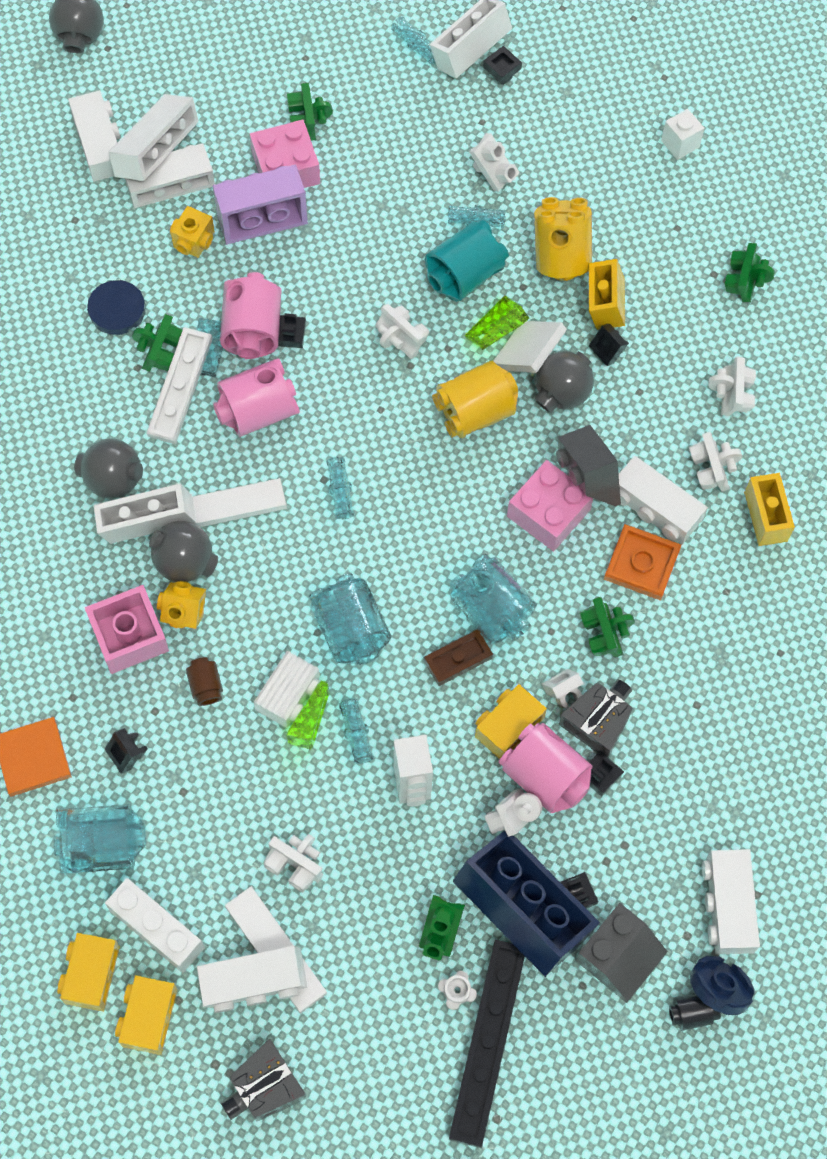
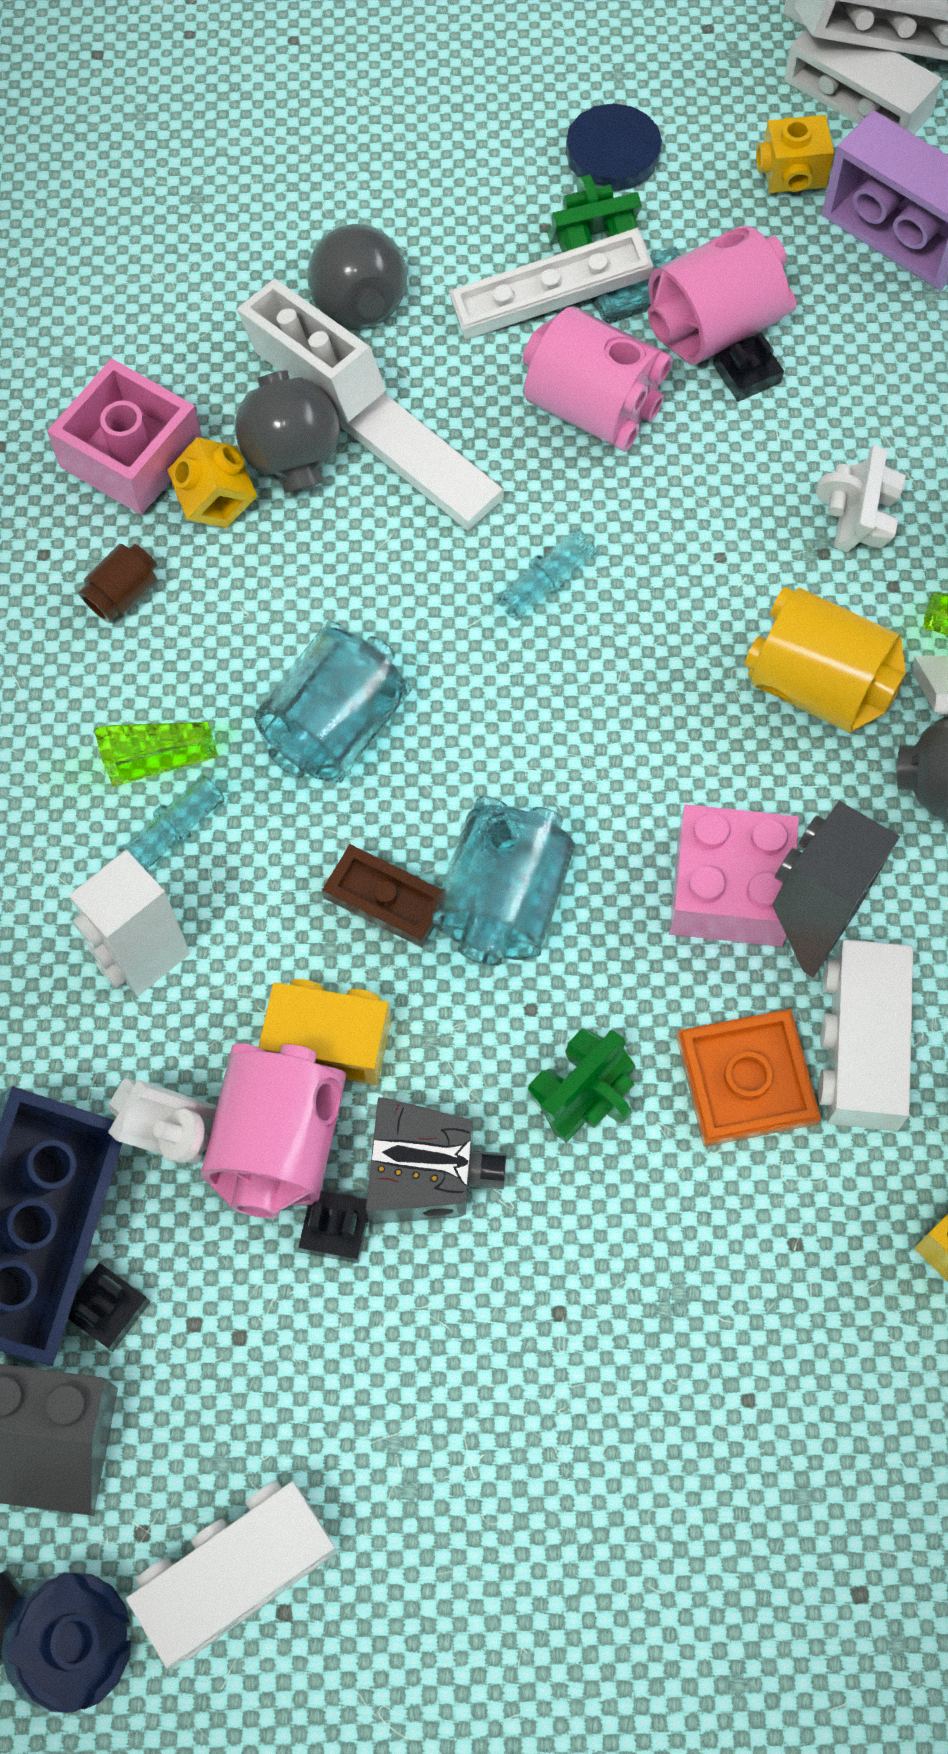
camera: 60 degrees right, 0 degrees up
(287, 689) = (175, 689): white brick -> none
(562, 684) = (442, 1074): white tile -> none

